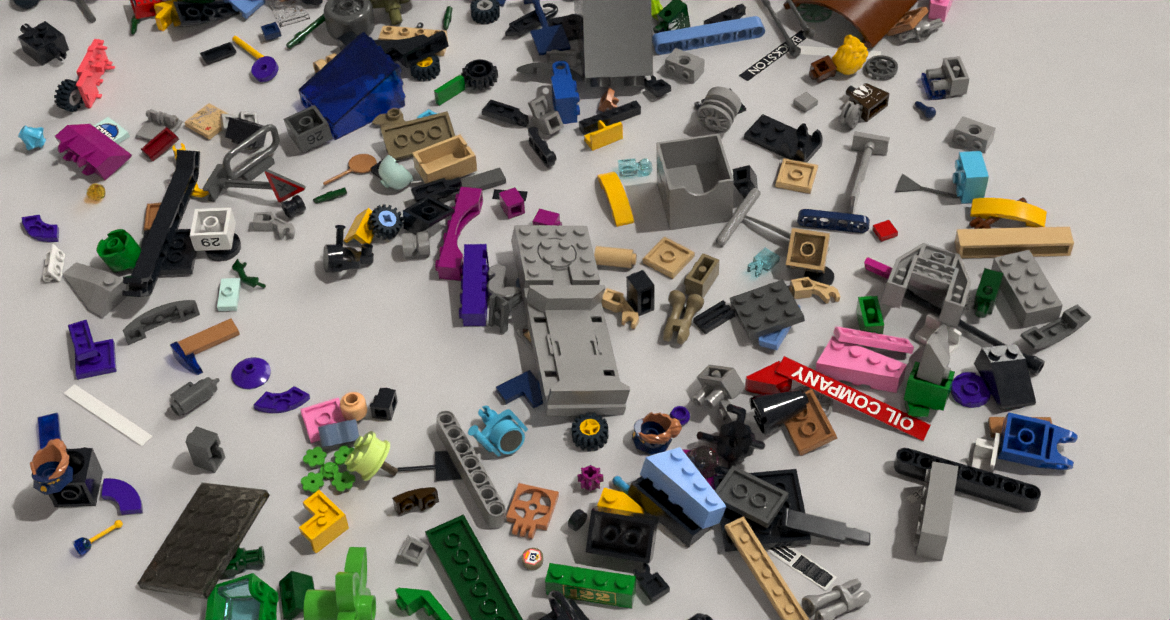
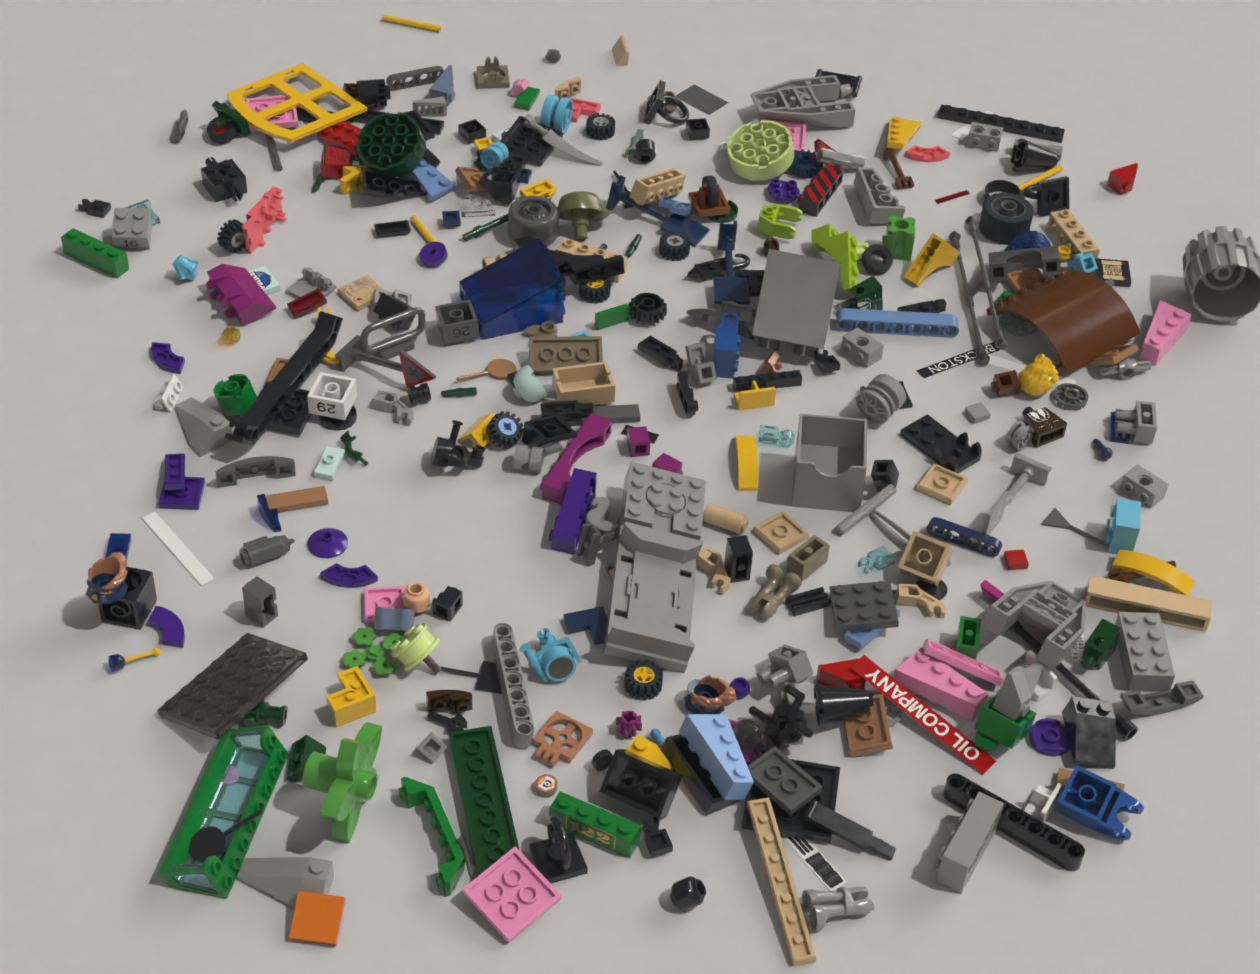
camera: 10 degrees right, 5 degrees down
(421, 520) = (451, 723): none -> black bar

